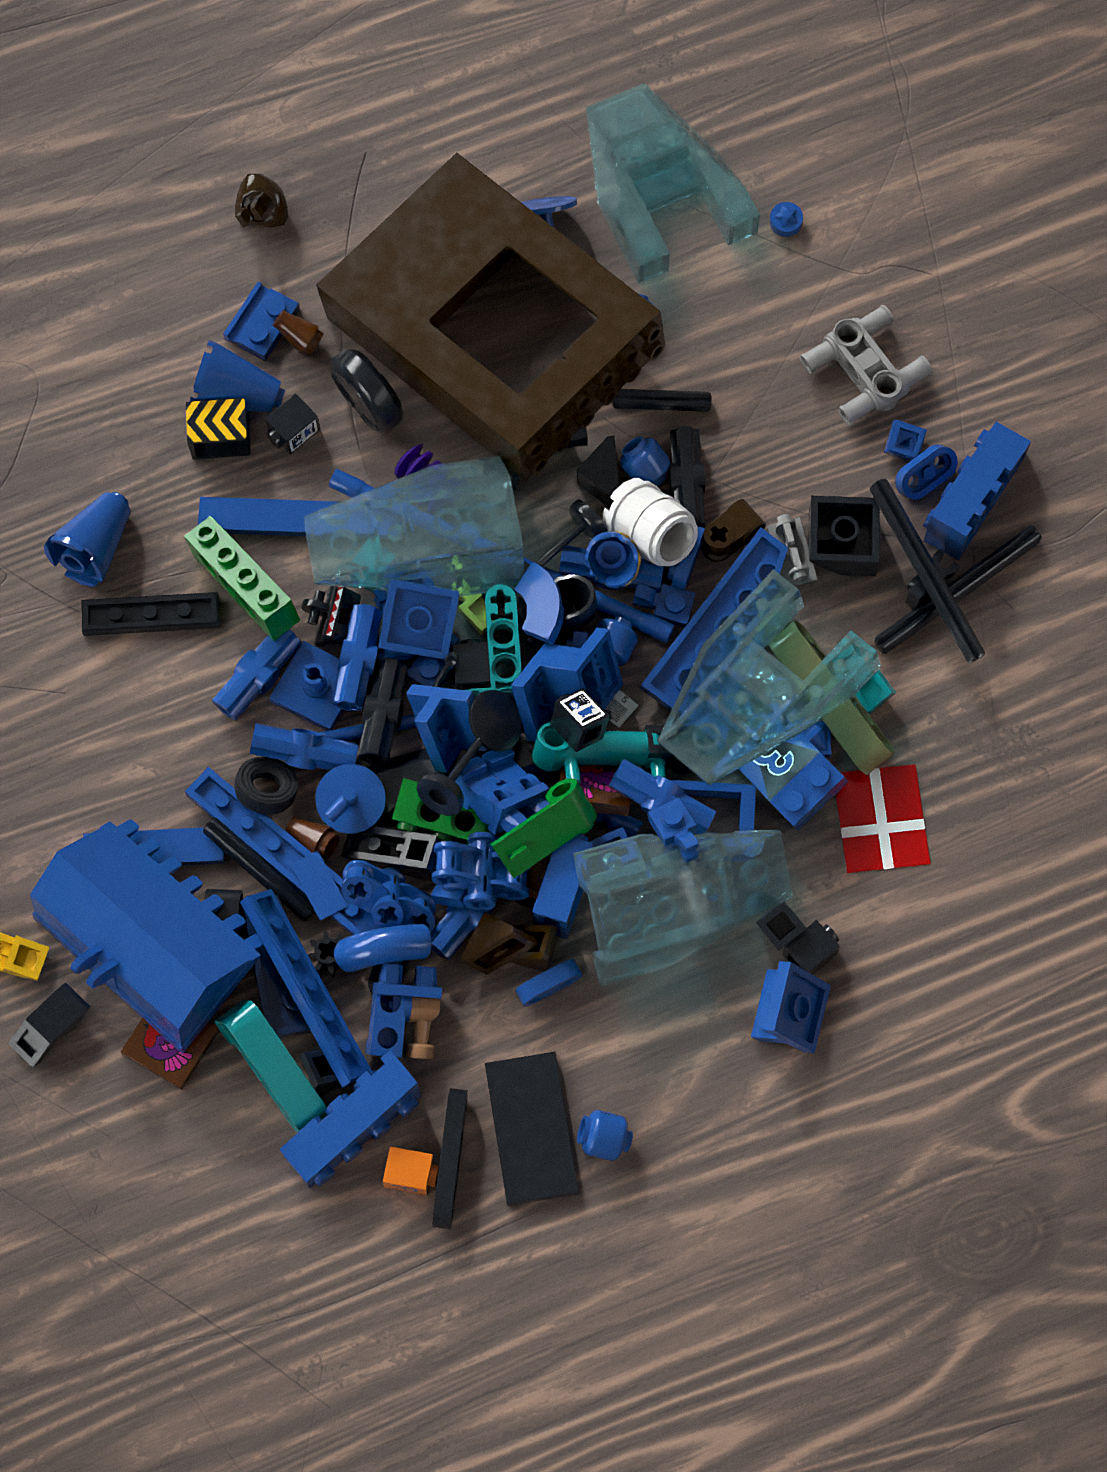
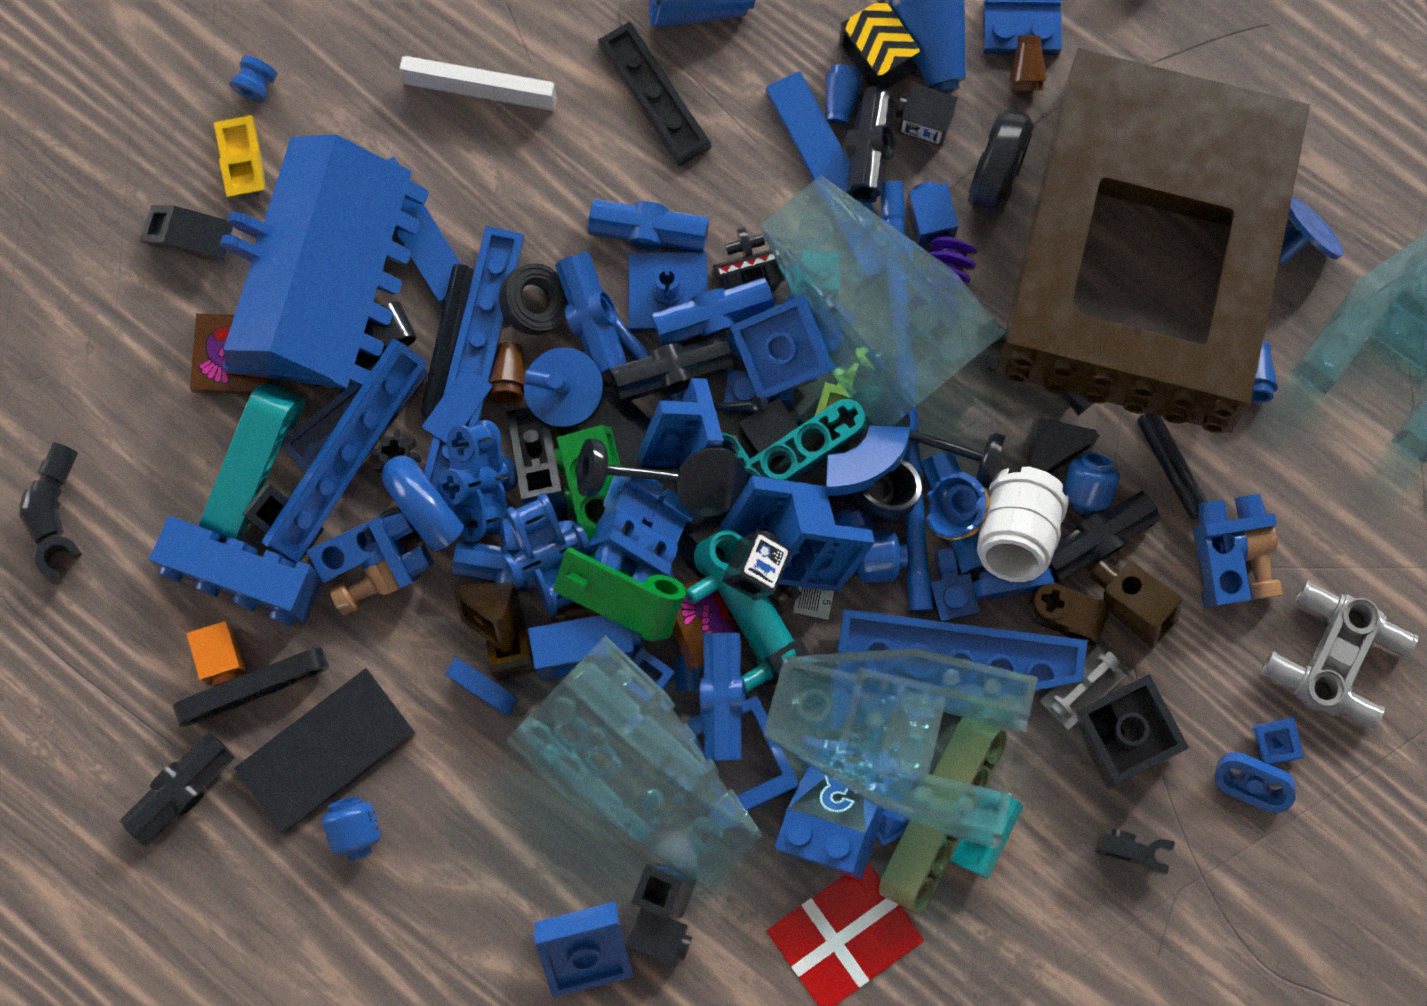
camera: 60 degrees right, 5 degrees up
(63, 738) = (478, 83): none -> white tile
(214, 1254) = (40, 510): none -> black piece
(236, 475) = (842, 91): none -> blue cone
(242, 578) = (731, 155): brick -> none
(292, 475) = (870, 144): none -> black piece
(371, 461) = (931, 212): none -> blue brick
(499, 1255) = (177, 789): none -> black piece
(675, 826) = (692, 724): blue plate -> none
(745, 394) = (1227, 545): none -> blue hips
(751, 476) = (1150, 609): none -> dark brown torso
(927, 570) = (1136, 841): black axle -> none
(959, 588) = (1144, 885): black axle -> none
(975, 490) = (1266, 845): blue wedge -> none

